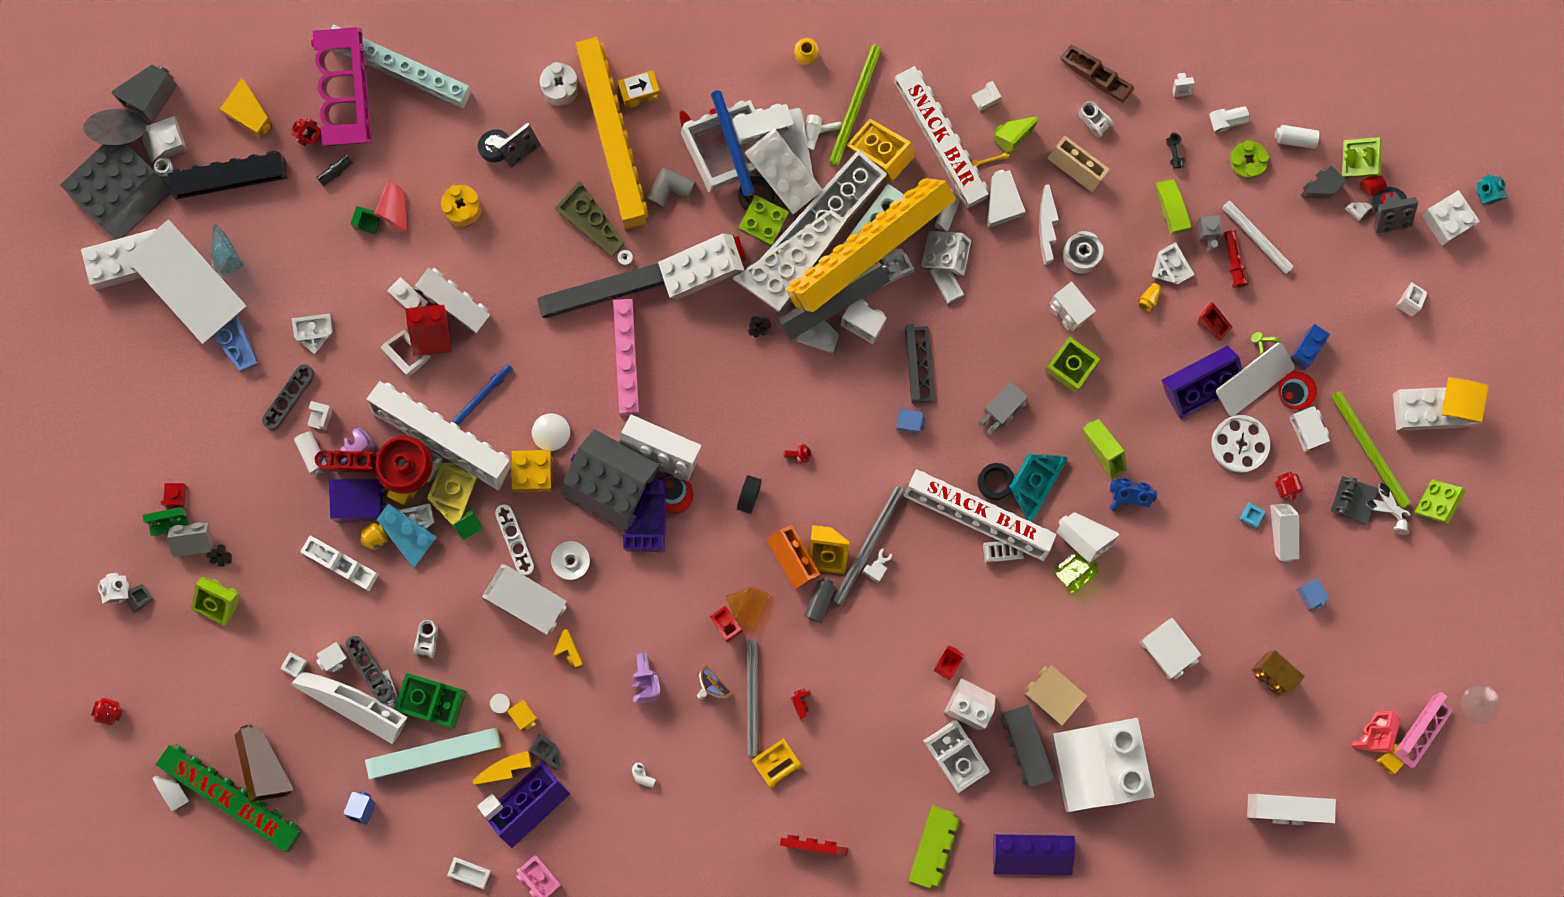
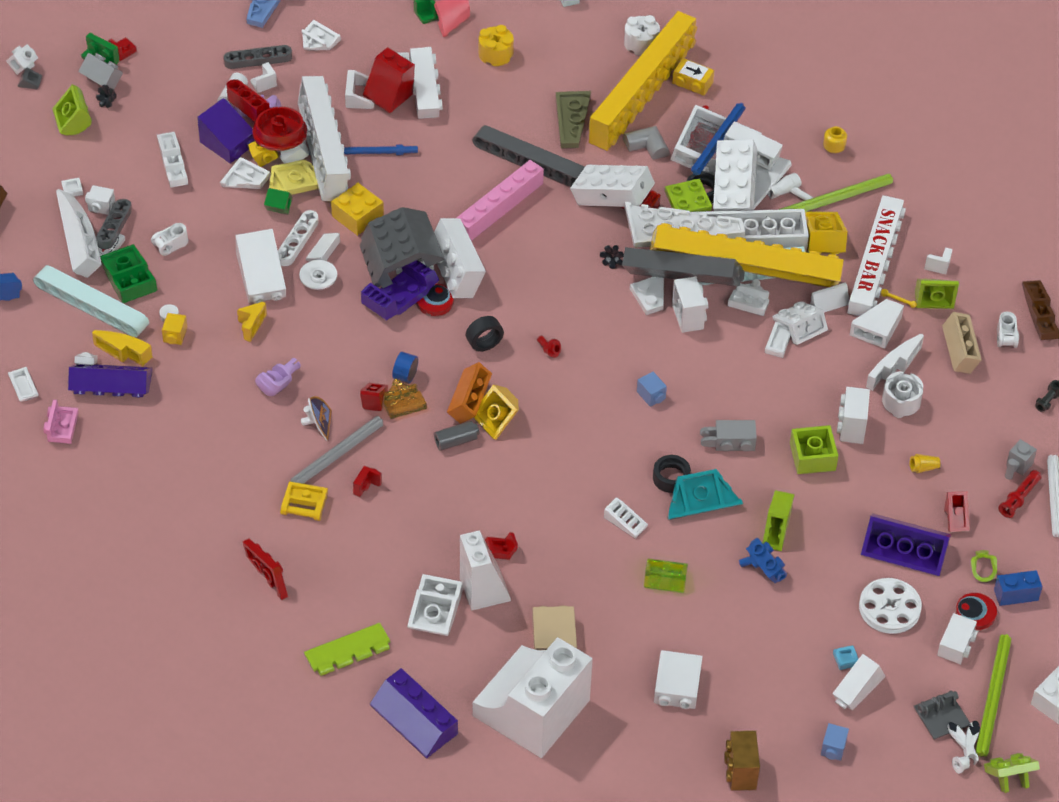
camera: 50 degrees right, 30 degrees down
(374, 536) = (213, 161): yellow head -> none
(407, 534) = (233, 174): medium azure wing -> none
(498, 146) = (570, 40): dark grey plate -> none
(543, 530) = (324, 247): none -> white slope
(546, 751) = (162, 363): dark grey slope -> none
(551, 432) = (396, 199): white dish -> none
(625, 254) = (569, 153): white piece -> none
(640, 776) = (204, 429): white arm -> none
(725, 580) = (405, 367): none -> blue piece
(868, 545) = (531, 436): light grey axle -> none
(877, 569) = (518, 451): white piece -> none
(912, 363) = (695, 360): dark grey fence -> none
(980, 515) = (634, 480): white brick -> none
(1027, 746) = (494, 642): dark grey slope -> none
(1086, 536) = (699, 557): white slope -> none
(1172, 265) = (965, 460): white slope -> none
(1173, 207) = (1006, 426): lime slope -> none
(1255, 379) = (949, 573): white piece -> none
(1289, 486) = (897, 660): red head -> none

